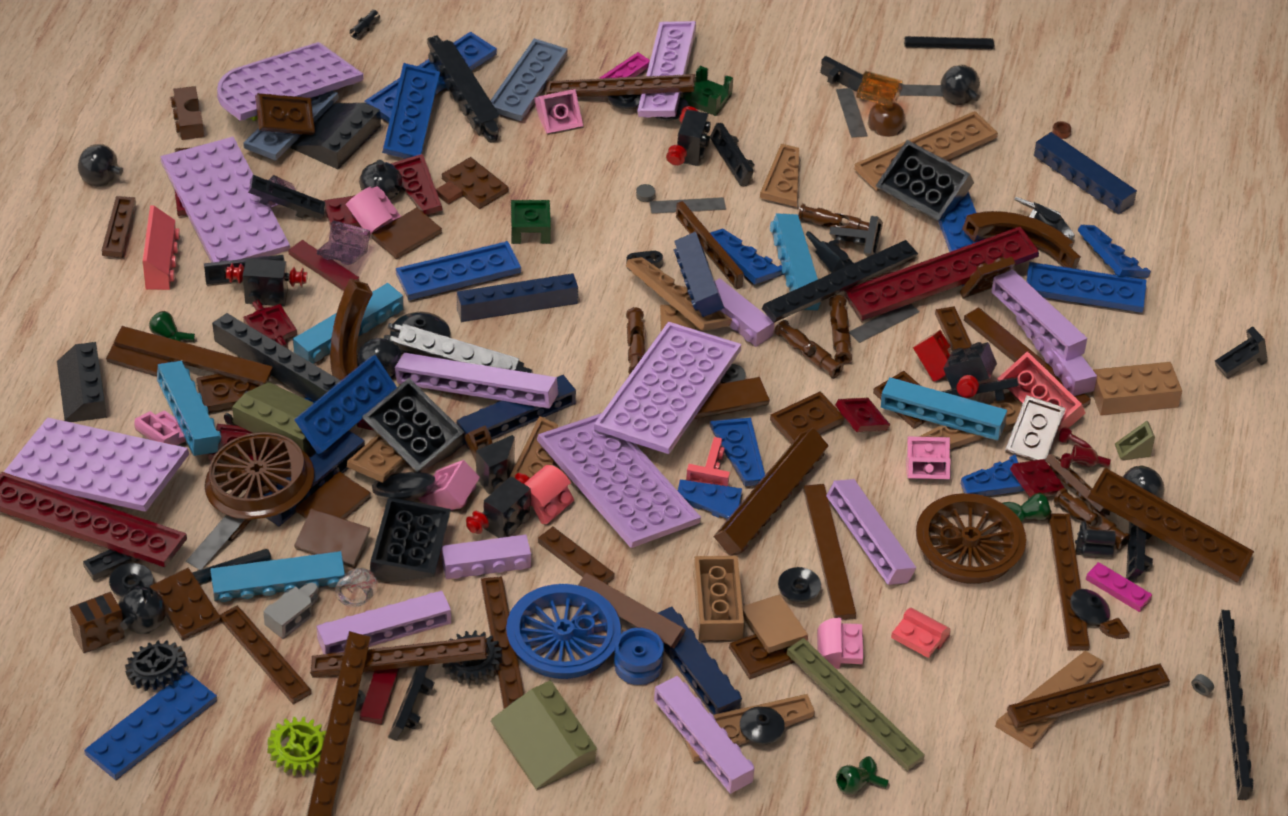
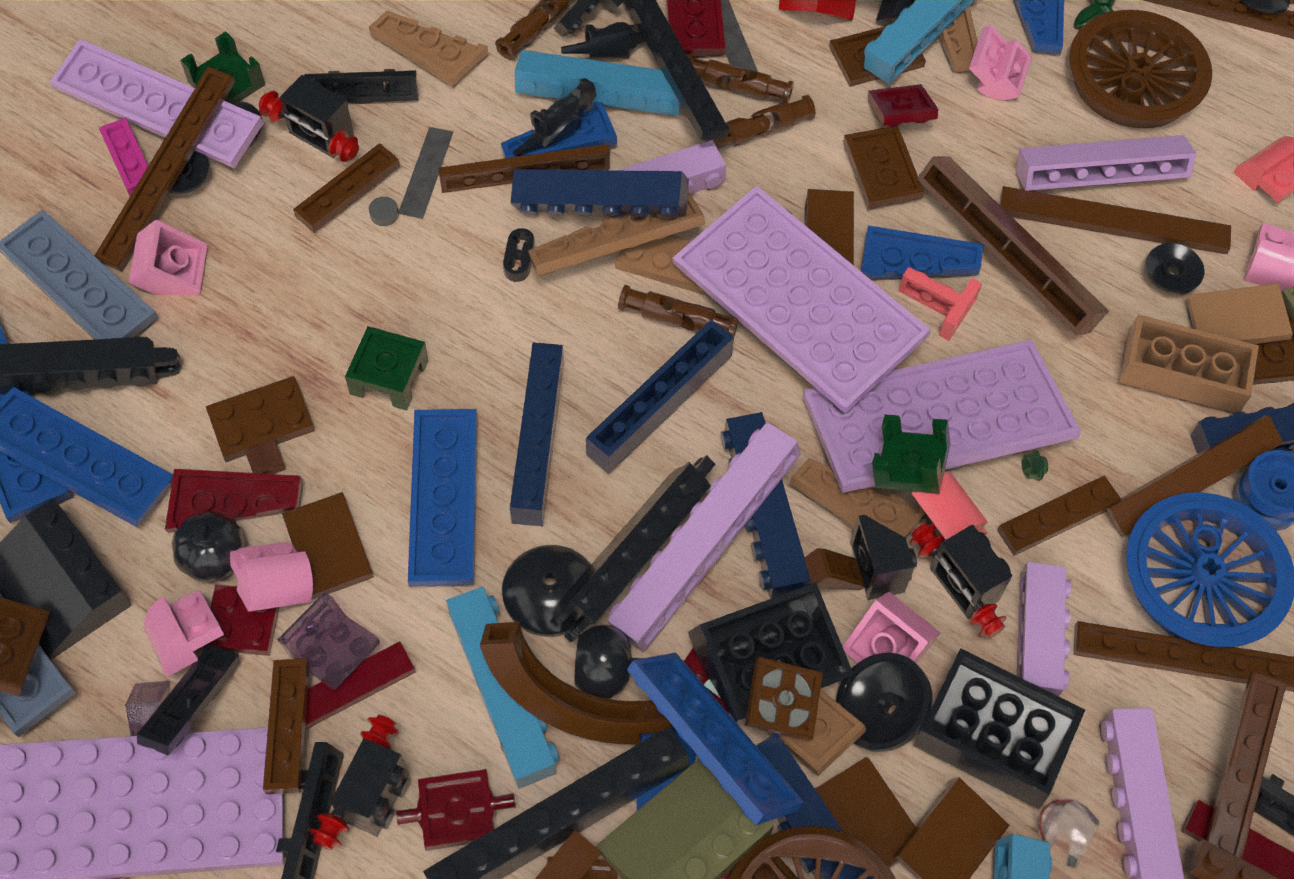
camera: 70 degrees left, 15 degrees up
(288, 241) = (286, 726): none -> reddish brown plate
(325, 183) = (180, 630): none -> bright pink brick
(382, 432) = (784, 699): none -> reddish brown piece
(476, 669) = (1223, 699): black gear -> none
(567, 343) = (659, 396): none -> dark blue brick
(567, 457) = (912, 459): none -> dark green panel
(605, 536) = (1034, 466): none -> clear green plate
(653, 170) = (346, 187): none -> reddish brown plate
(711, 497) = (992, 316): blue wing -> none
(751, 245) = (560, 118): none -> black animal

